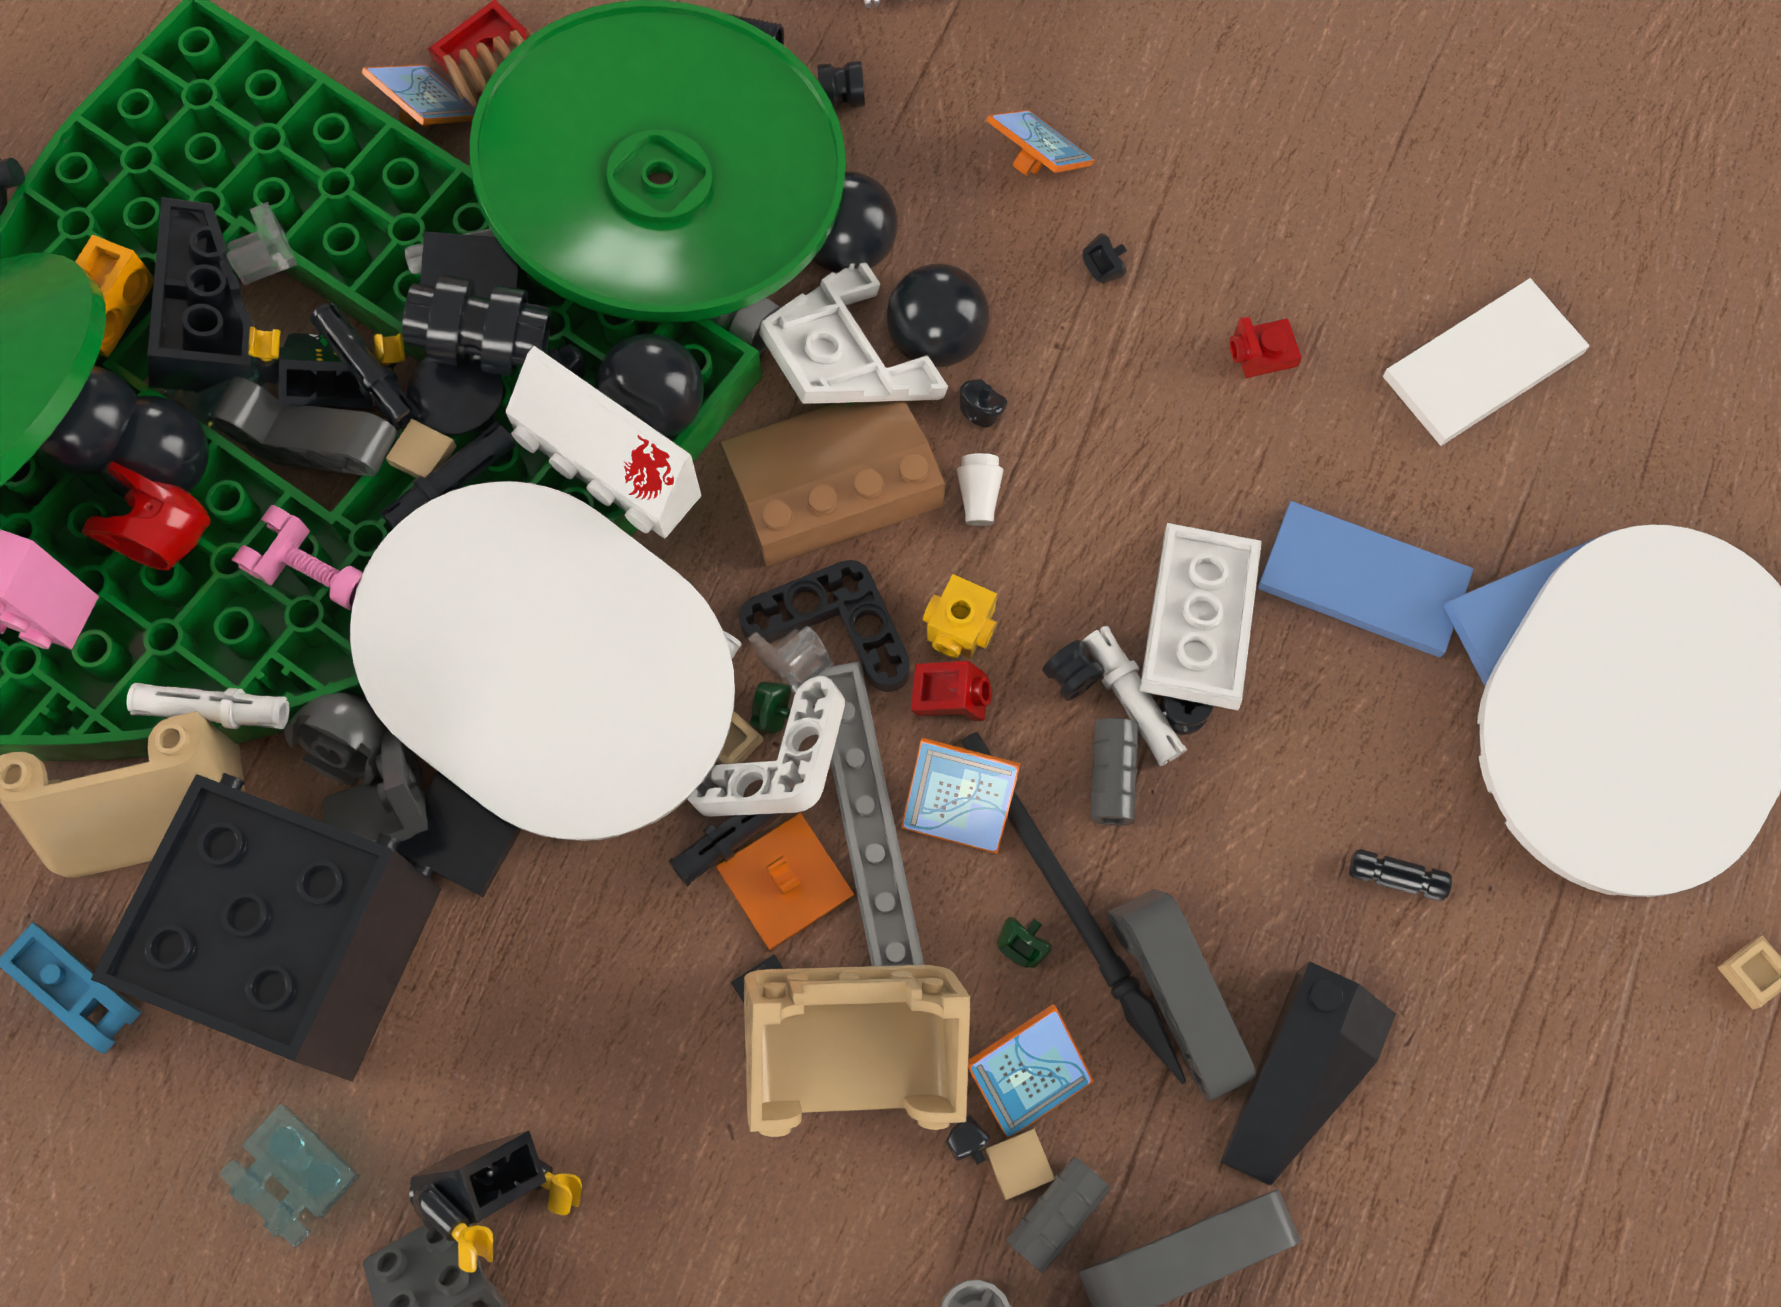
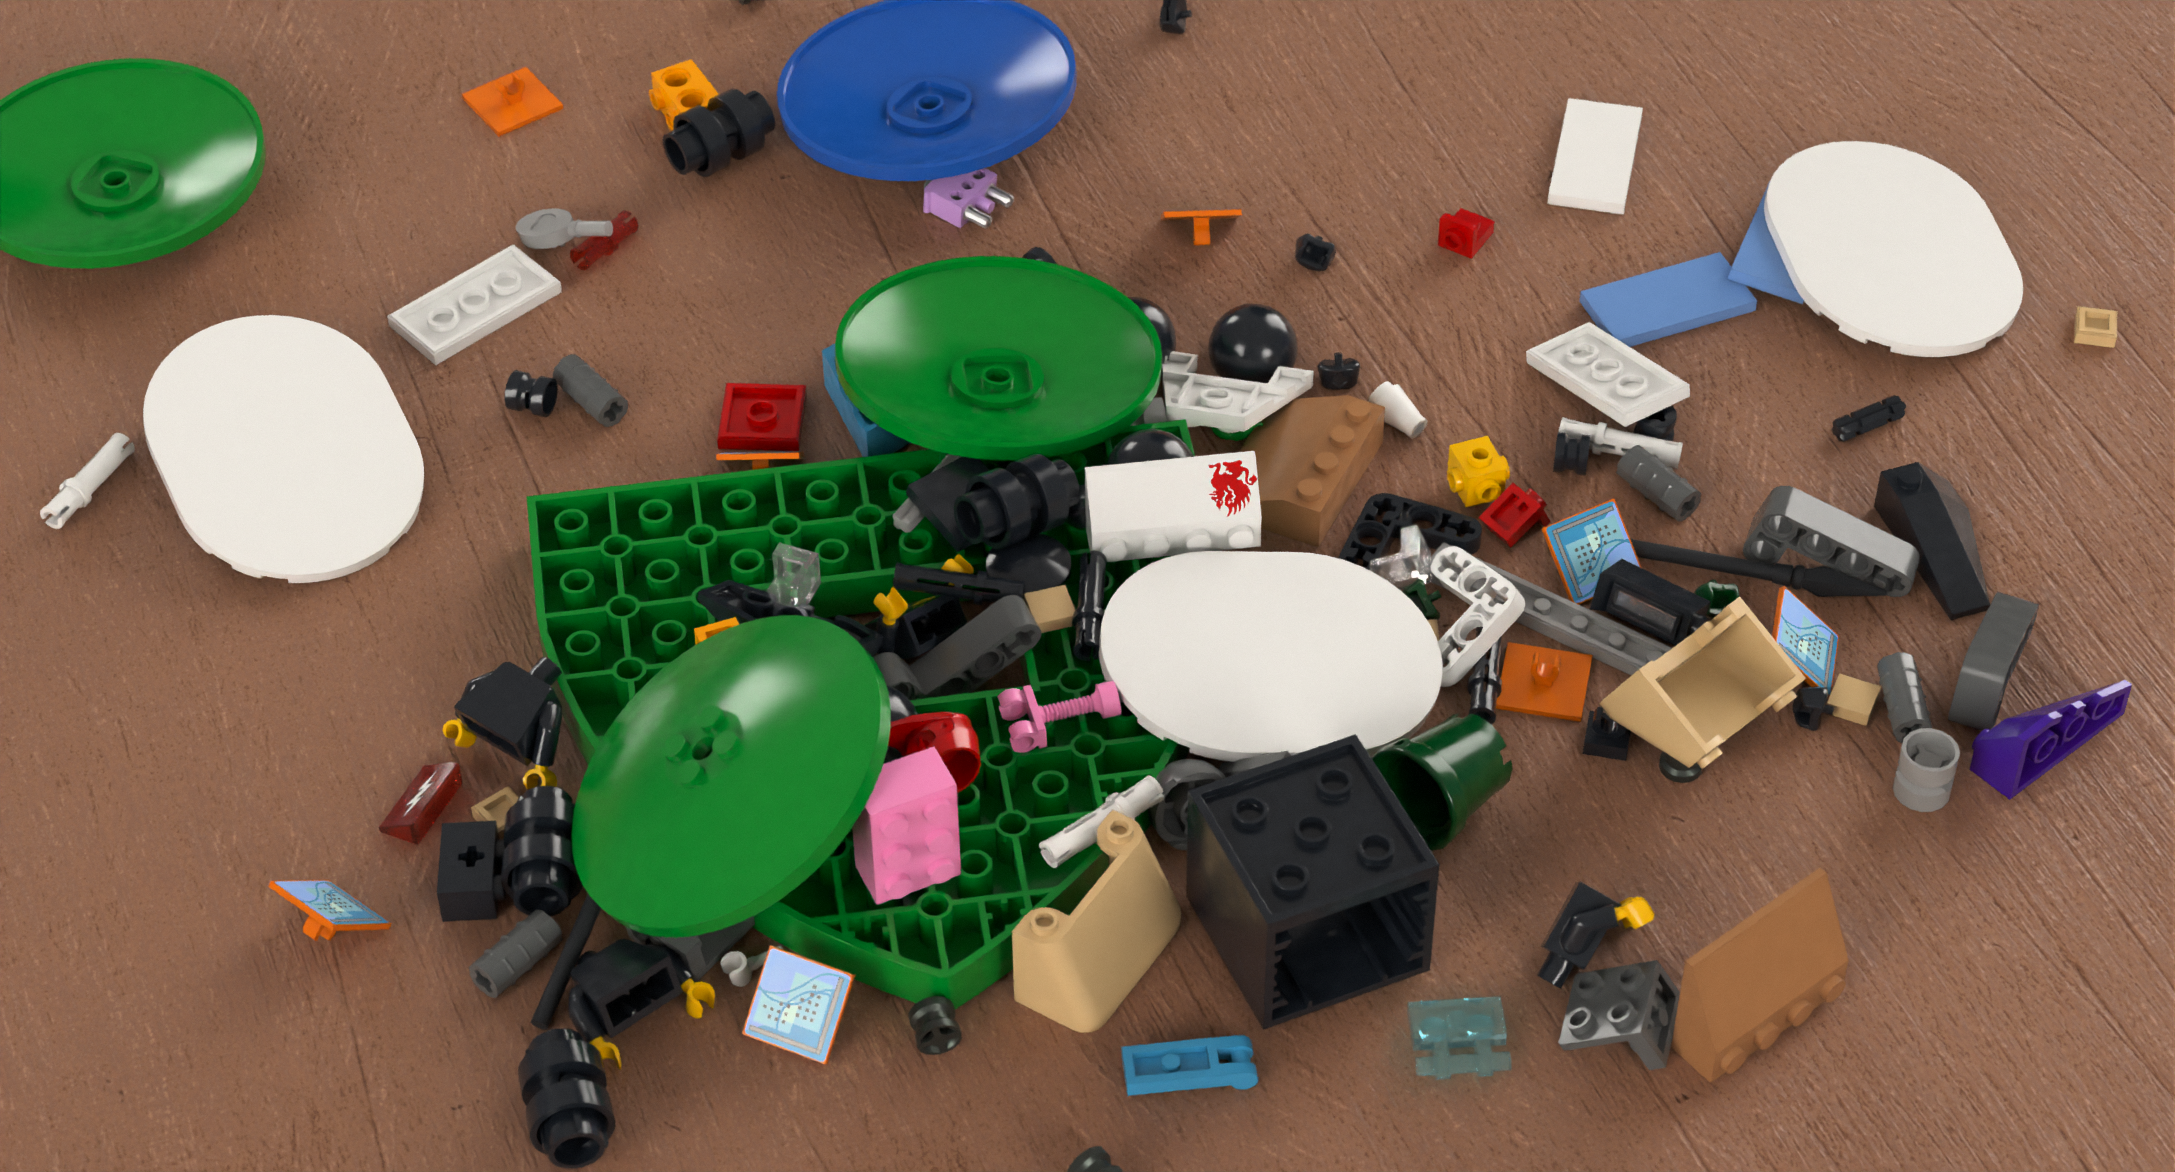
camera: 45 degrees left, 25 degrees down
(472, 73) = (797, 405): medium nougat piece -> none
(538, 916) = (1445, 775): none -> dark green piece
(948, 899) = (1649, 602): none -> black window

